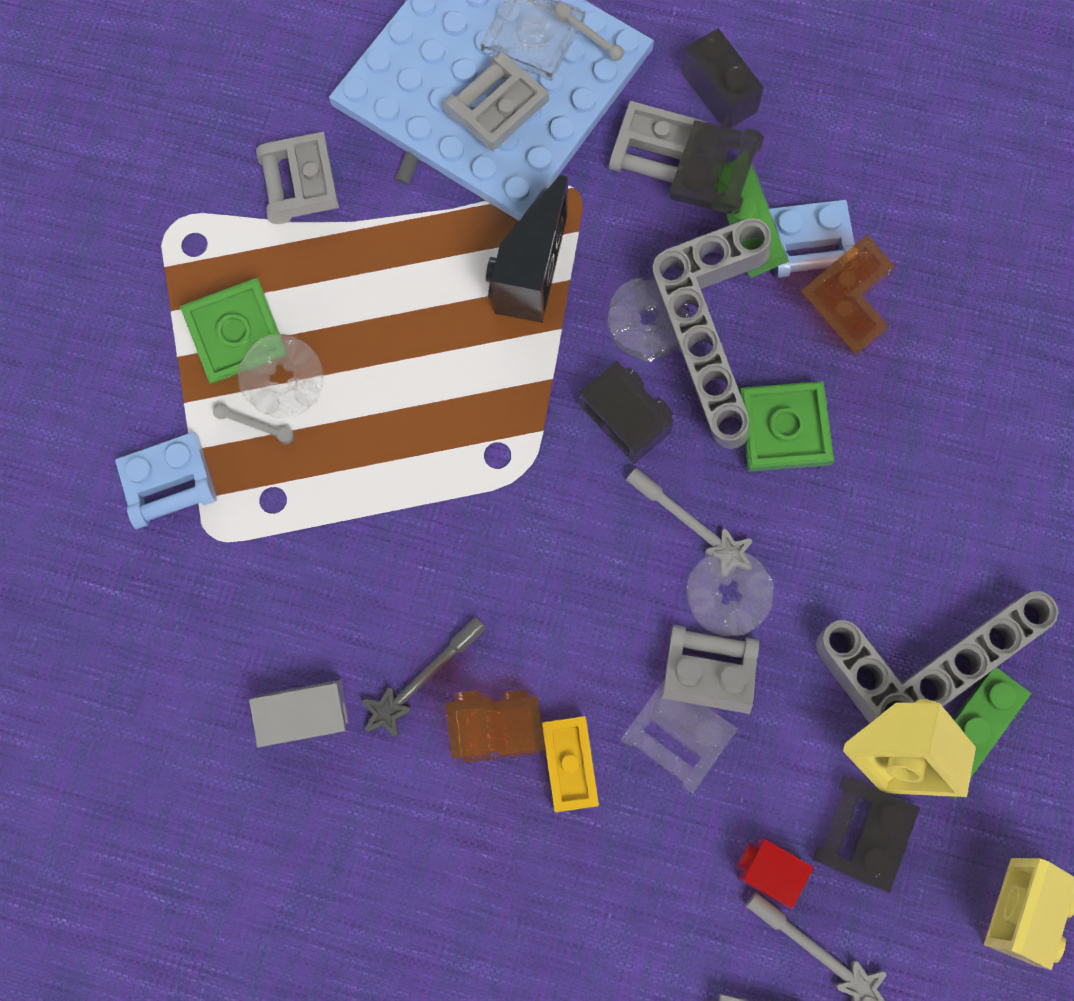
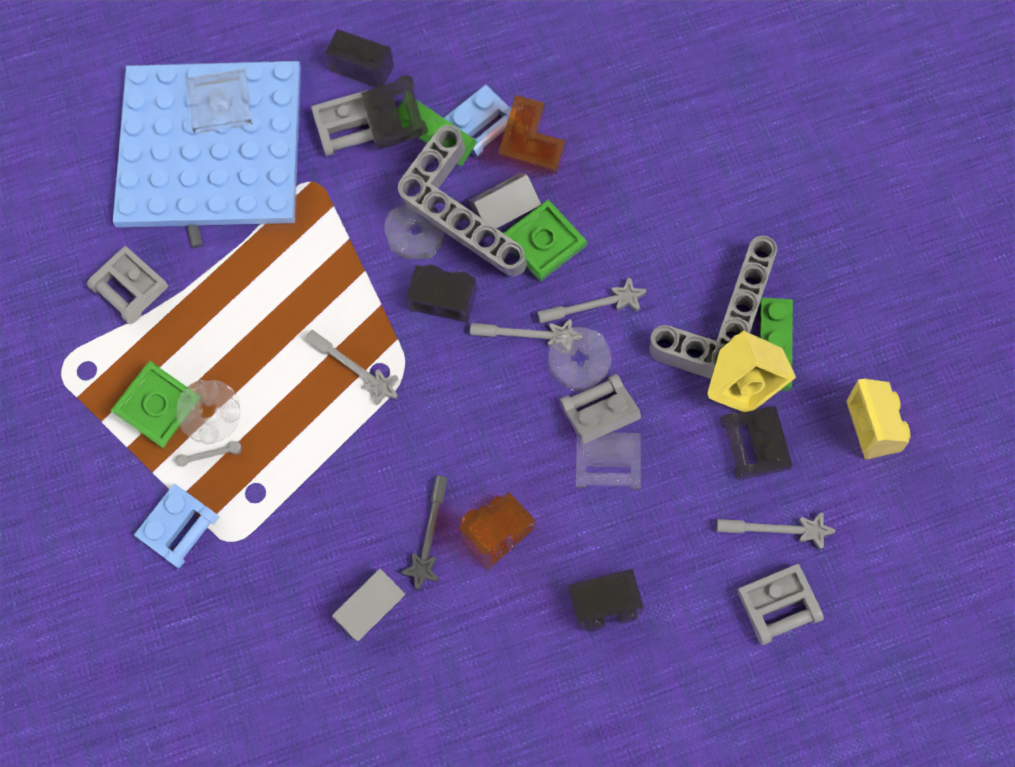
camera: 35 degrees left, 5 degrees down
(486, 468) = (379, 385): none -> light grey piece
(504, 108) = (236, 157): light grey plate -> none
(528, 257) = (319, 246): black slope -> none
(560, 897) = (605, 600): none -> clear smoke brick
(563, 13) = (232, 78): light grey hinge -> none
(570, 764) = (557, 521): yellow plate -> none
(771, 352) = (505, 200): none -> light grey hinge
(774, 872) = (719, 499): red brick -> none
(832, 553) = (622, 296): none -> light grey piece

